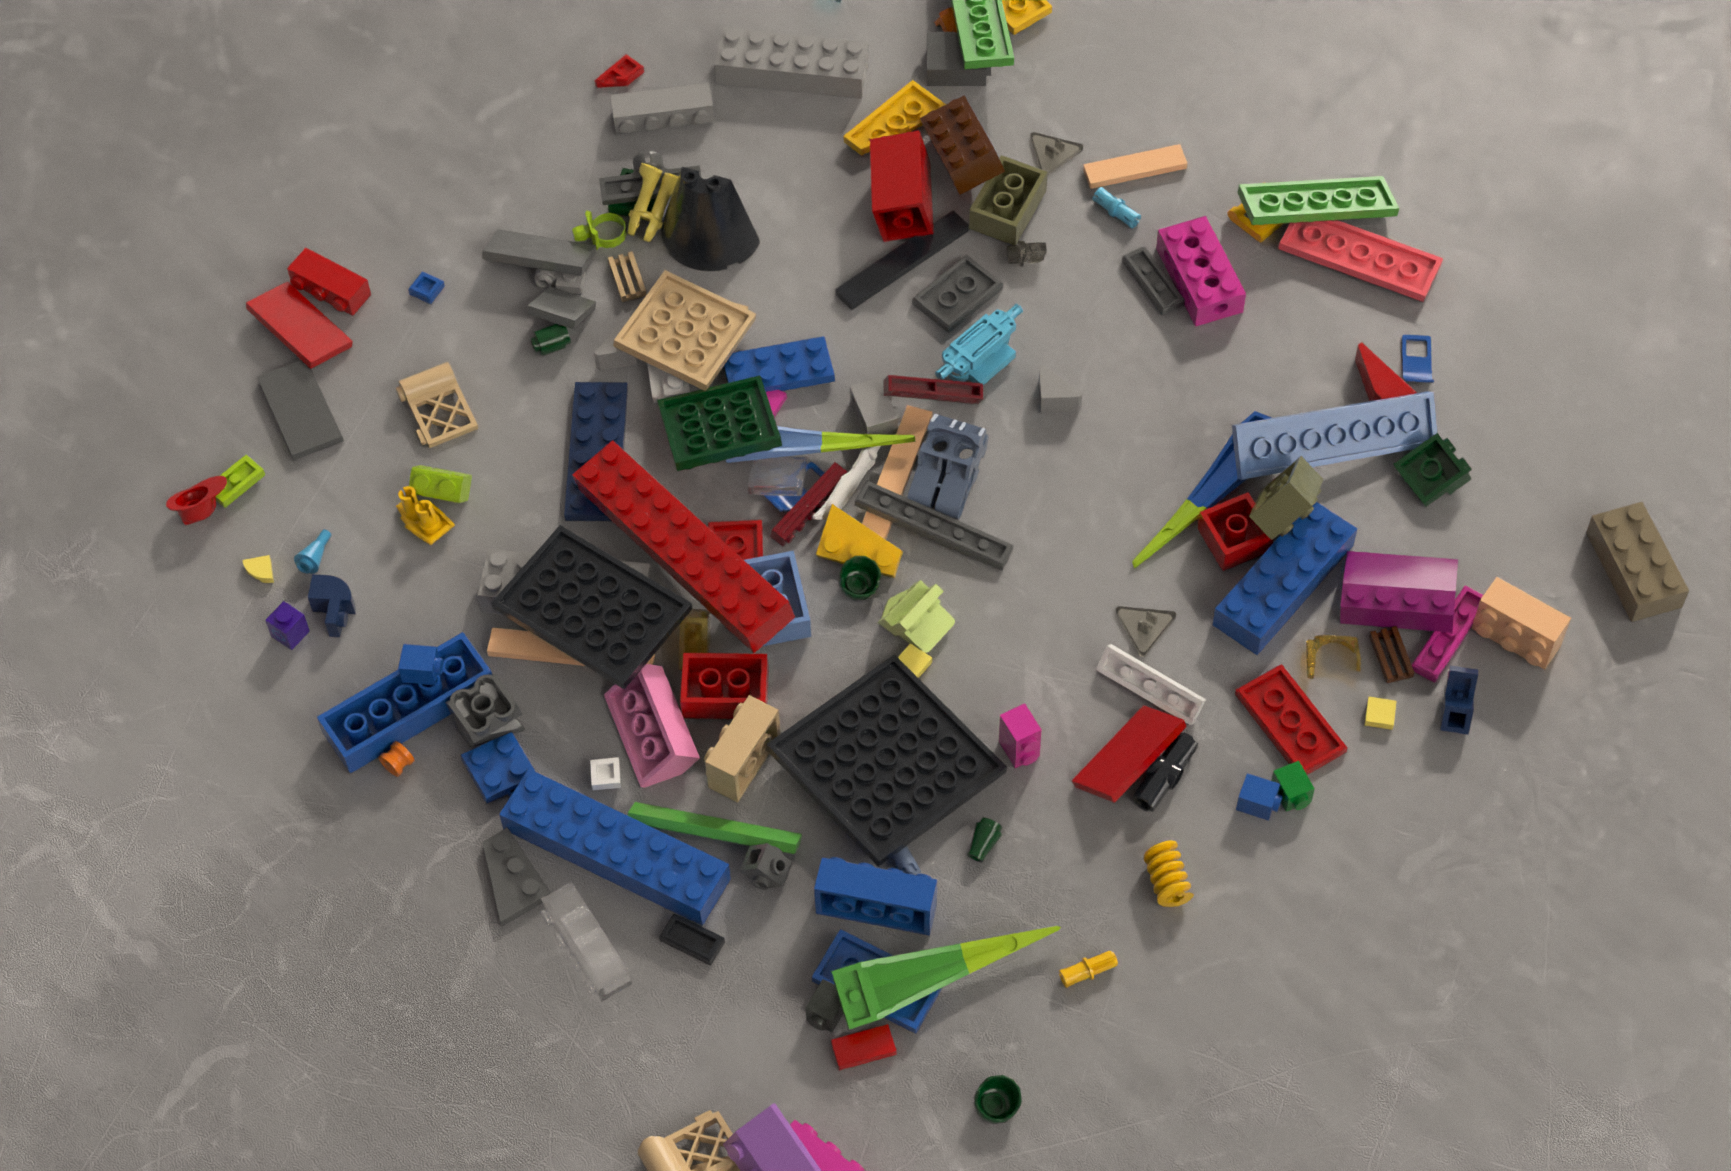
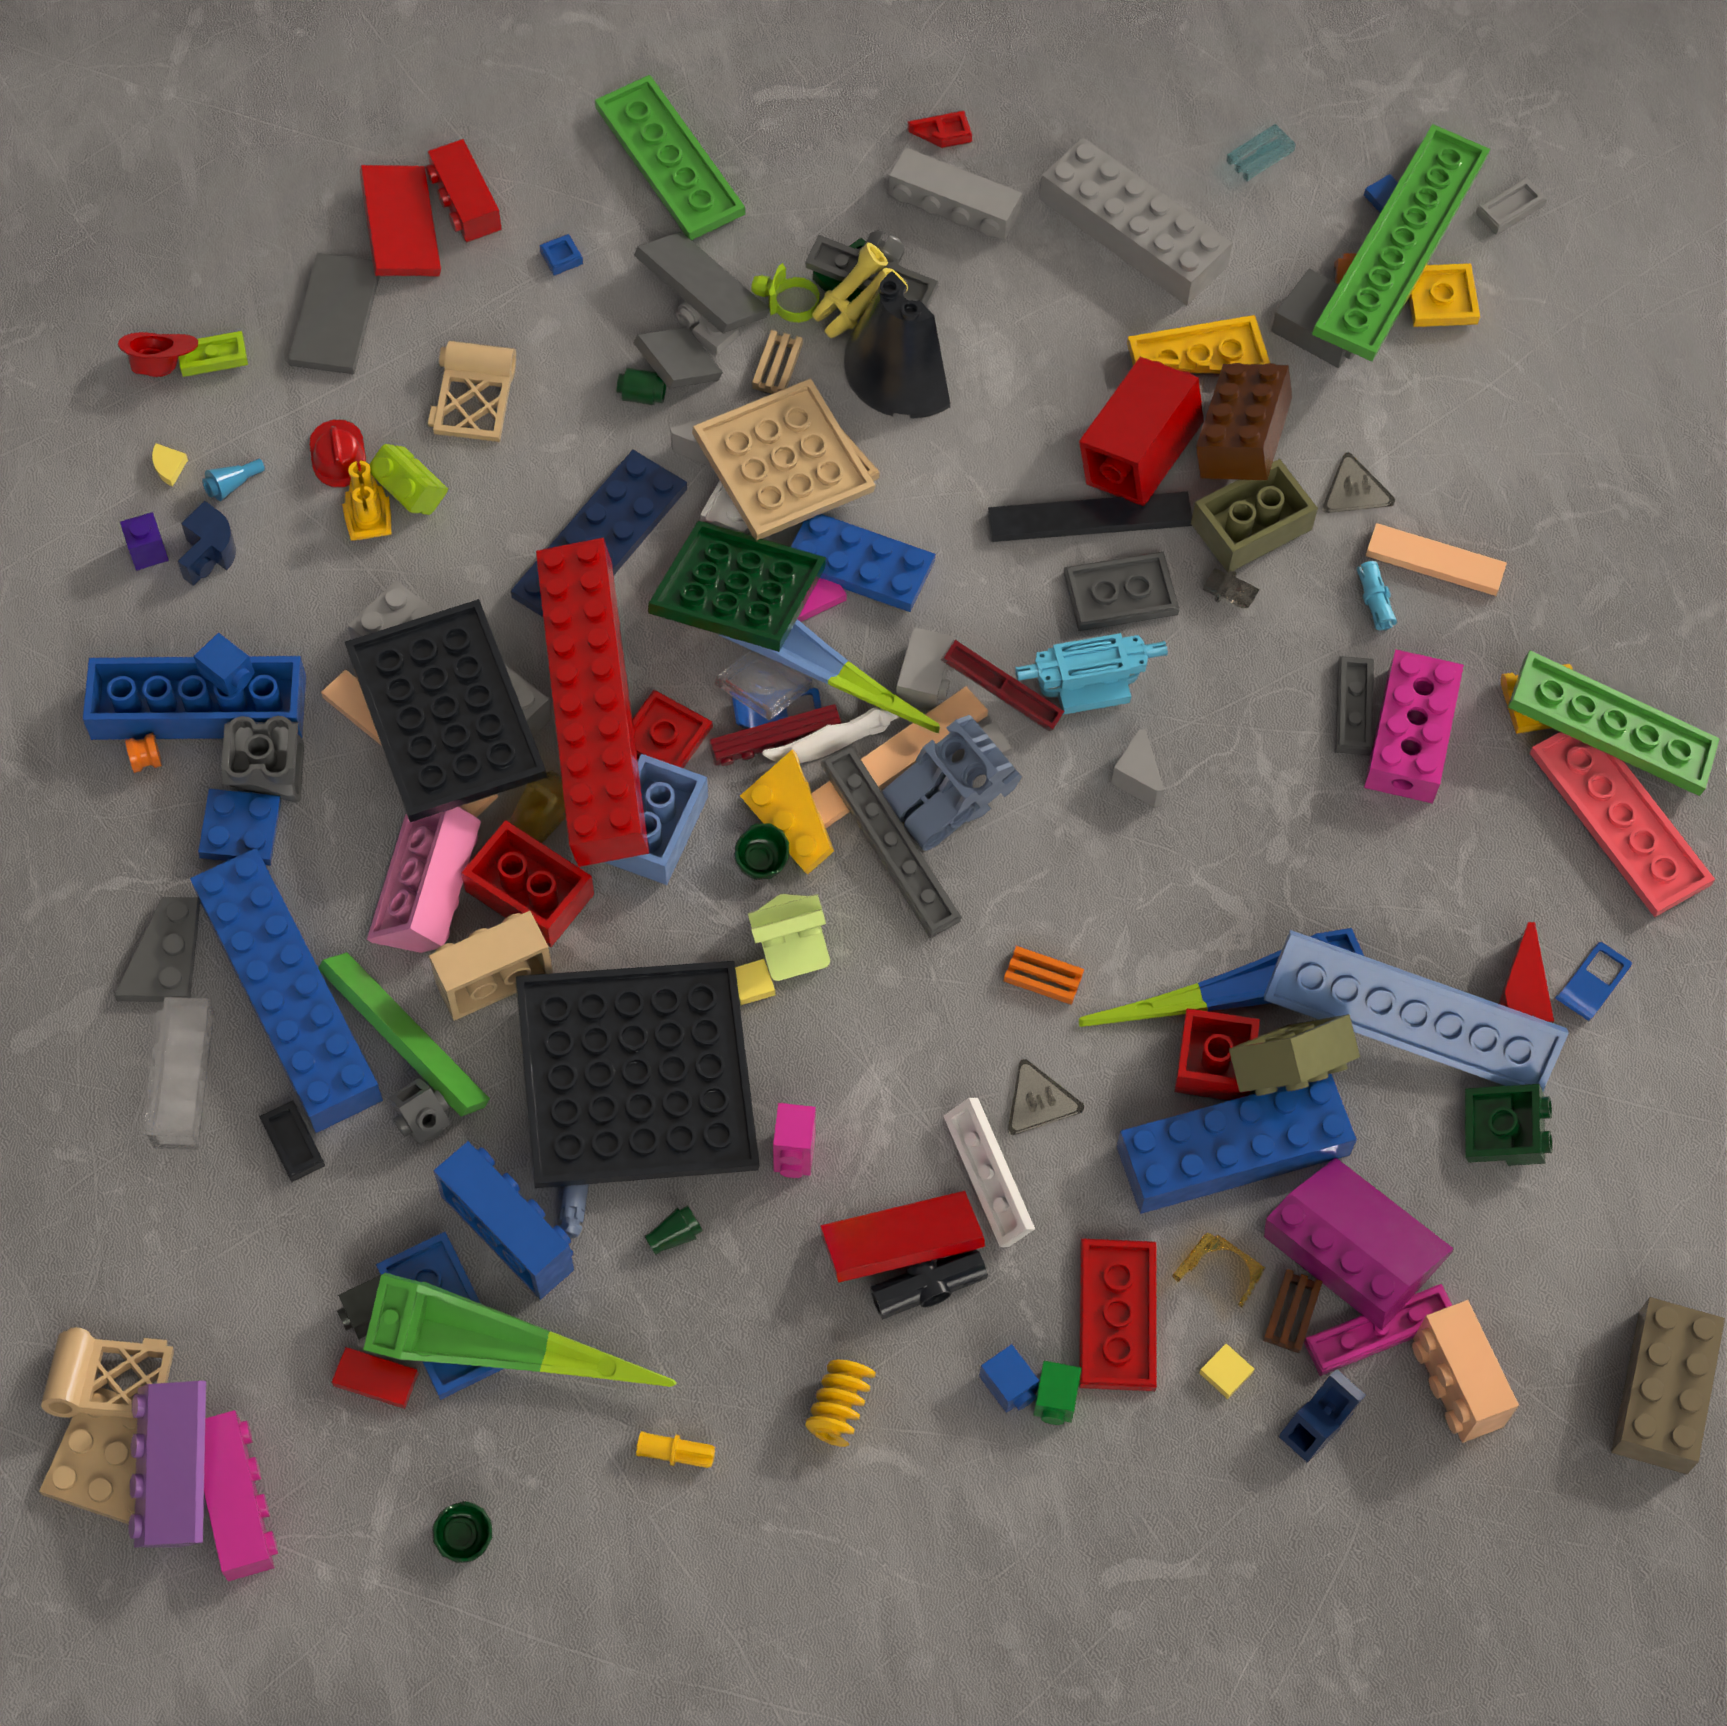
camera: 30 degrees right, 5 degrees up
(372, 496) = (333, 449): none -> red piece
(452, 186) = (670, 157): none -> bright green plate
(605, 773) = (338, 902): white plate -> none
(1089, 545) = (1046, 963): none -> orange tile

